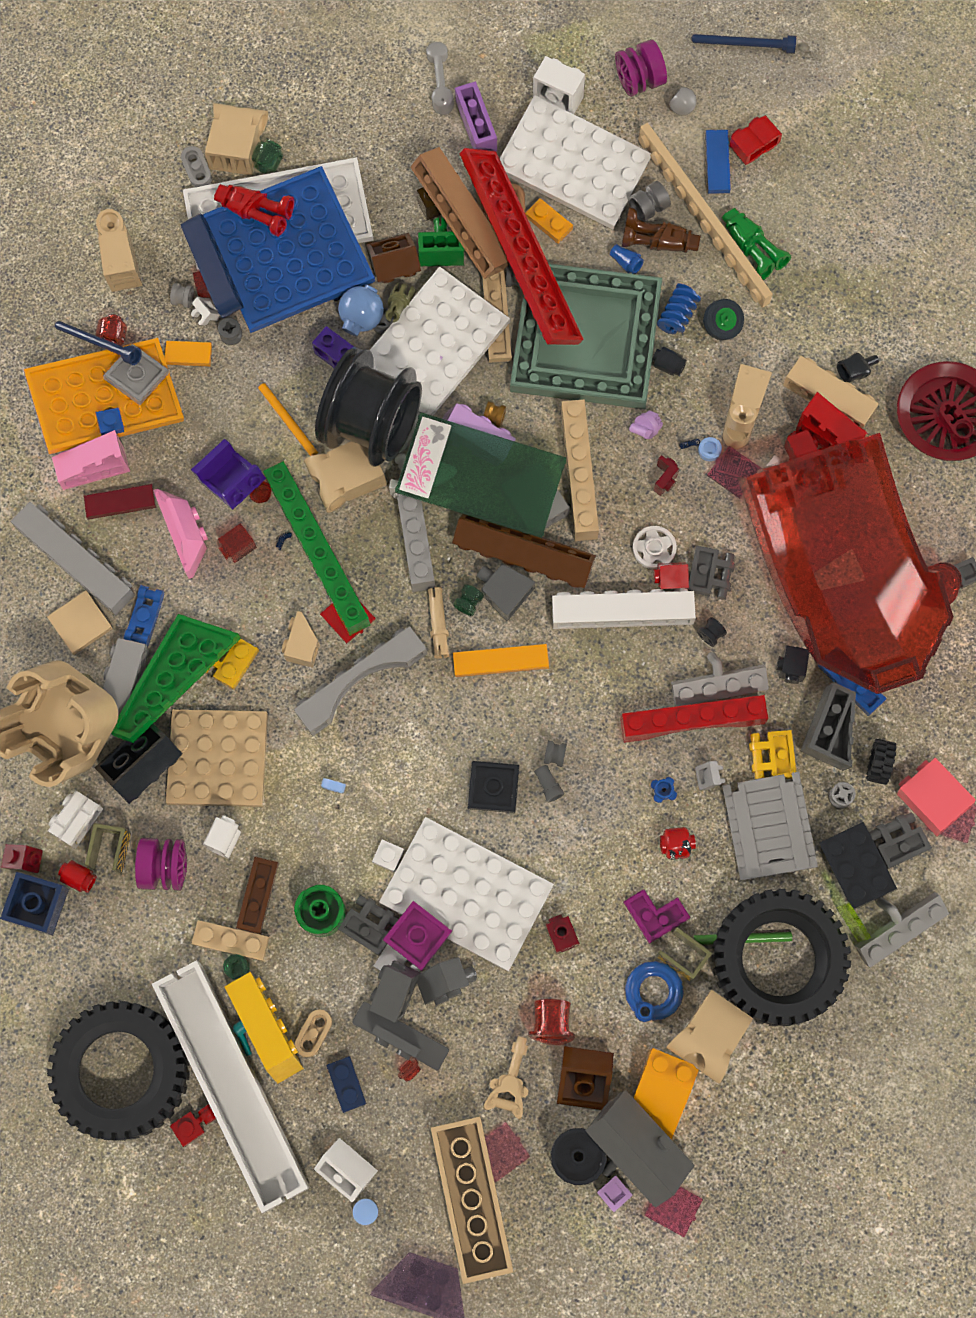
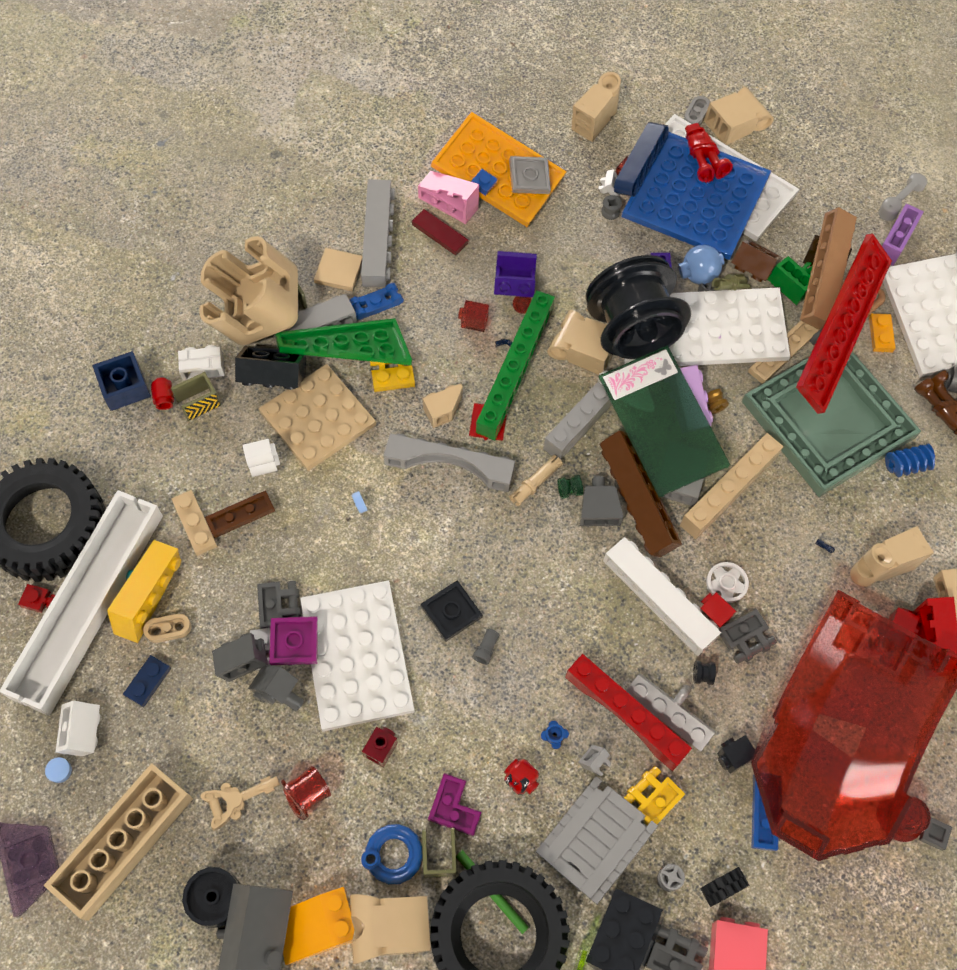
camera: 45 degrees right, 10 degrees down
(21, 858) = (149, 353): dark red bracket -> none
(112, 329) = (545, 144): clear red head -> none
(129, 354) = (537, 158): dark blue piece -> none
(163, 864) = (209, 434): magenta wheel -> none
(182, 295) = (606, 162): light grey wheel -> none
(183, 529) = (454, 280): bright pink wedge -> none
(188, 353) = (573, 196): light orange tile -> none
(240, 968) = (181, 542): clear green wheel -> none
(267, 156) = (745, 141): clear green head -> none
(287, 419) = (587, 280): light orange bar -> none
(313, 898) = (258, 549): green brick -> none
(388, 855) = (340, 578): white plate -> none
(401, 1036) = (209, 693): dark grey bracket -> none
(408, 1070) = (189, 715): clear red plate -> none
(501, 660) = (548, 543): light orange tile -> none
(504, 1151) = (180, 839): clear pink piece -> none
(555, 753) = (512, 632): dark grey wheel -> none
(585, 1078) = (282, 853): reddish brown slope -> none
(614, 1193) = (206, 953): lavender plate -> none
(627, 259) = (909, 400): blue cone -> none
(646, 425) = (808, 505): lavender piece -> none
(667, 480) = (785, 550): dark red bracket -> none
(669, 361) = (868, 484): black brick -> none
(710, 449) = (835, 563): light blue tile -> none
(723, 319) = (936, 495): black wheel -> none
(729, 468) = (826, 585): clear pink piece -> none
(831, 728) = (715, 824): dark grey wedge -> none

